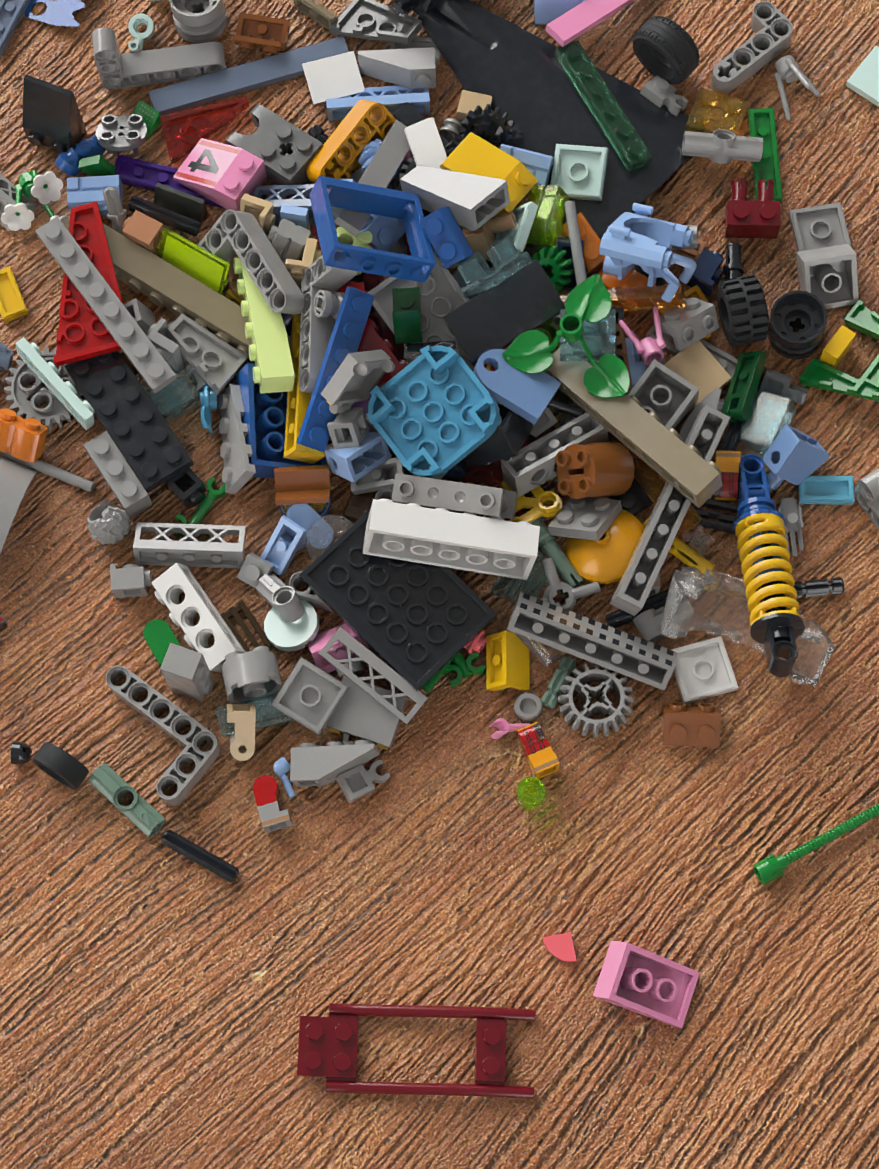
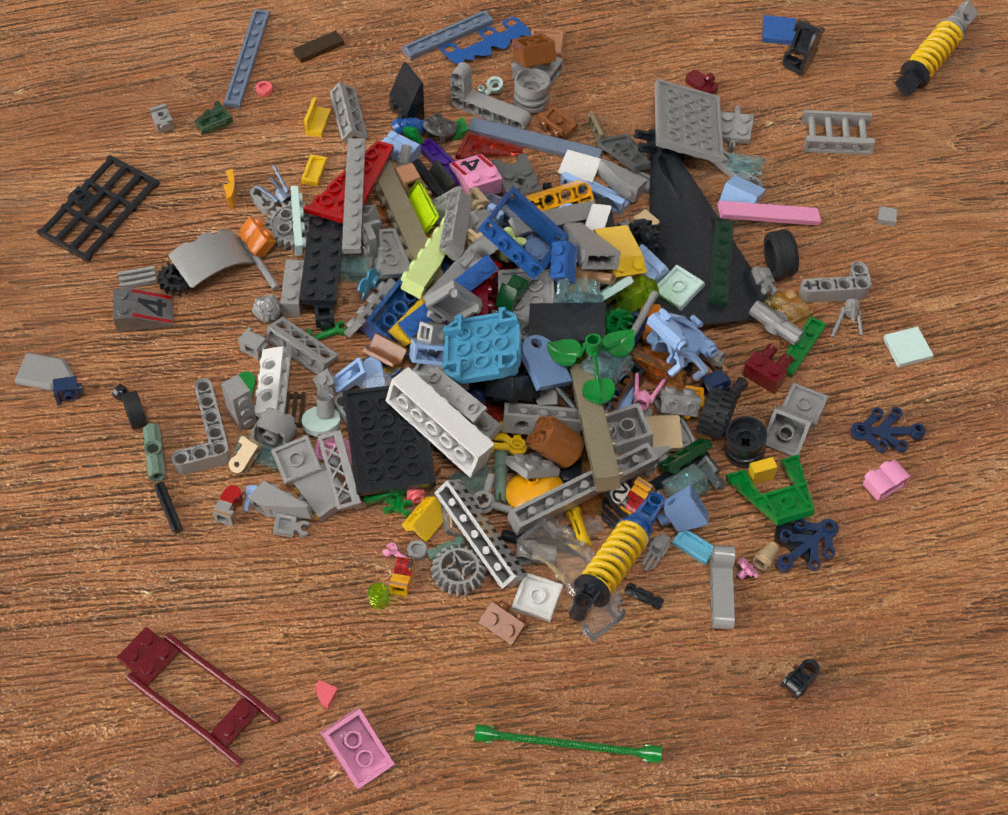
camera: 30 degrees right, 15 degrees down
(32, 185) = (372, 126): white plant -> none

